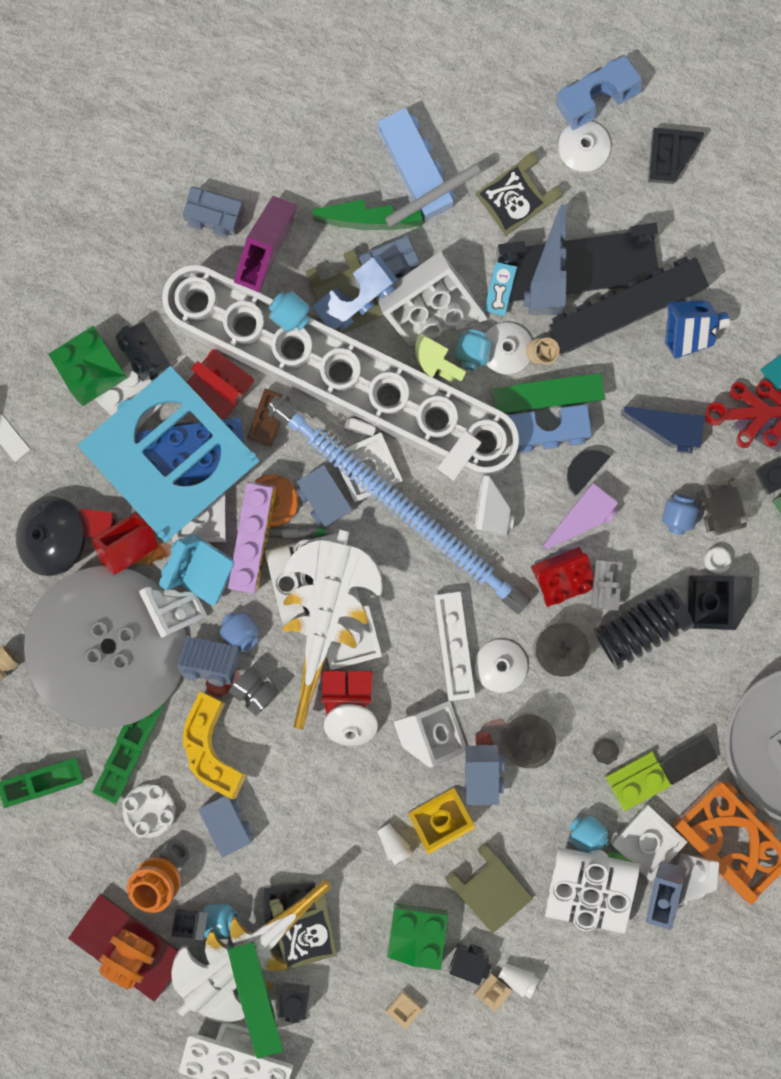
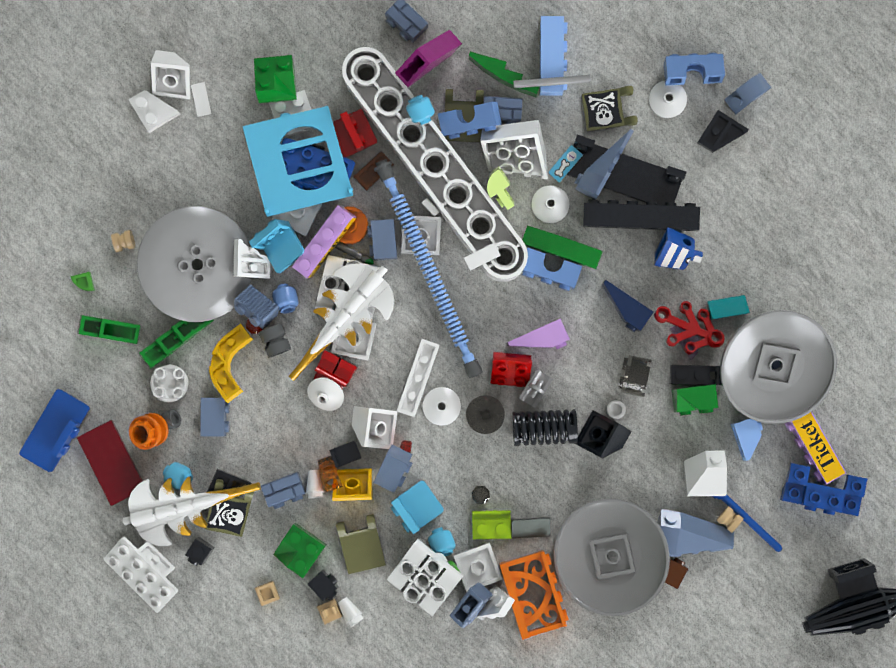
camera: 25 degrees right, 0 degrees up
(36, 943) = (54, 430): none -> blue bracket
(60, 539) = (201, 181): black dish -> none
(97, 521) = (228, 183): red brick -> none
(125, 543) = (241, 204): red brick -> none
(126, 959) = (107, 468): orange piece -> none
(142, 351) = (315, 87): black bracket -> none
(155, 555) = (257, 221): clear orange piece -> none
(189, 924) = (158, 467): black plate -> none
(255, 999) = (175, 535): green slope -> none
(359, 871) = (283, 490): none -> sand blue brick
(404, 820) = (327, 472): none -> clear orange leg
(413, 786) = (345, 454): none -> black bracket
(473, 349) = (527, 194): medium azure head -> none
(492, 511) = (486, 304): white slope -> none
(534, 807) = (416, 507): none -> medium azure bracket
(543, 741) = (427, 470): clear smoke brick -> none
(547, 350) = (575, 217): tan wheel -> none
(584, 468) = (560, 306): black tile -> none
(679, 89) = (747, 93): none -> sand blue brick
(680, 514) = (607, 367): medium blue head -> none

